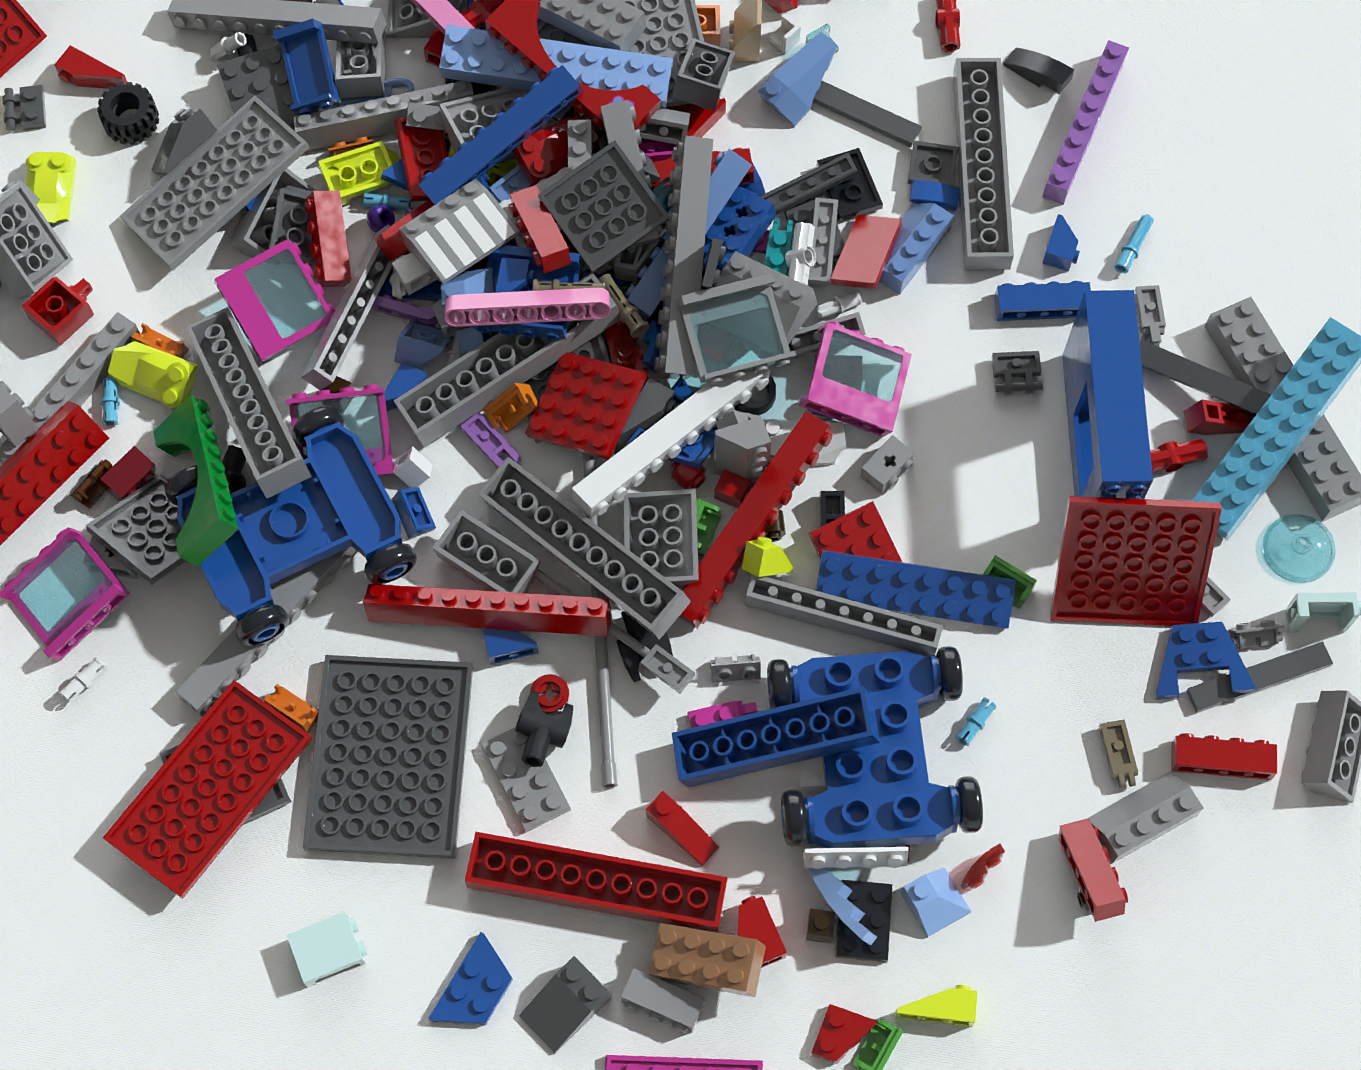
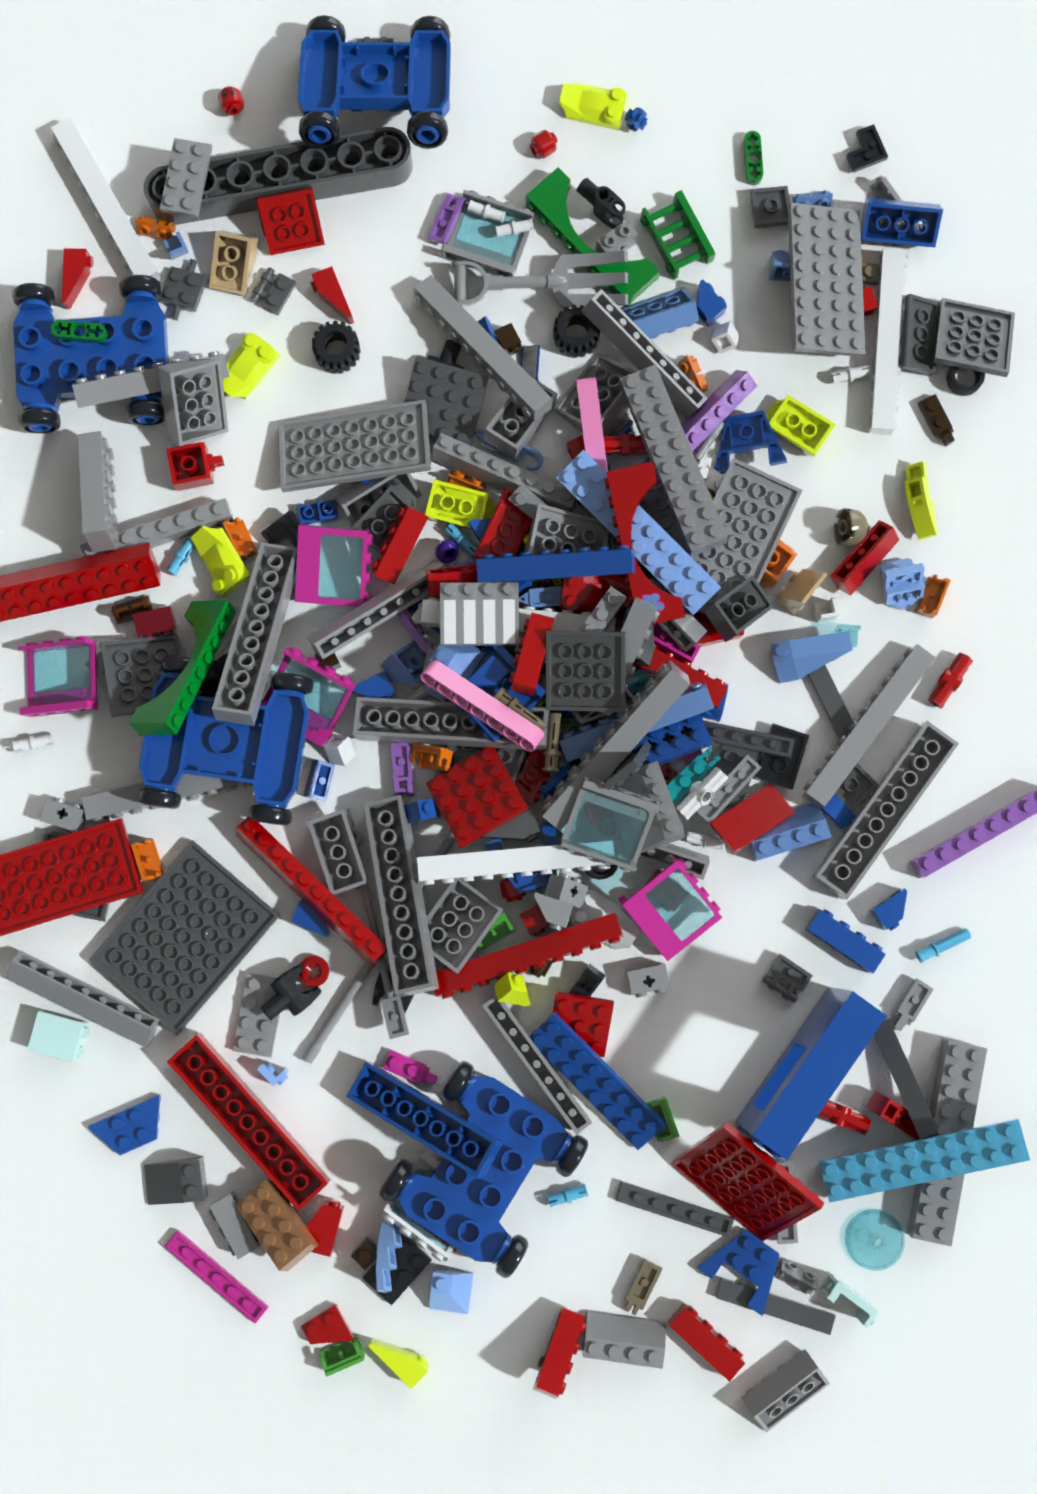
camera: 35 degrees right, 15 degrees up
(155, 724) = (52, 814): none -> light grey brick
(182, 137) = (356, 396): dark grey slope -> none
(199, 302) = (283, 527): none -> black plate
(222, 264) = (318, 512): none -> blue slope
(228, 45) = (438, 343): white axle -> none
(307, 66) = (474, 405): blue panel -> none
(325, 890) = (82, 998): none -> light grey brick
(542, 459) = (422, 811): none -> blue slope
(583, 824) = (269, 1073): none -> light blue bracket
(681, 828) = (328, 1123): red slope -> none
(745, 668) = (435, 1040): light grey hinge -> none
(907, 104) = (868, 726): none -> light grey brick
(978, 872) = (487, 1294): clear red slope -> none
(1039, 69) = (983, 766): black slope -> none
(1088, 658) = (674, 1209): none -> dark grey tile

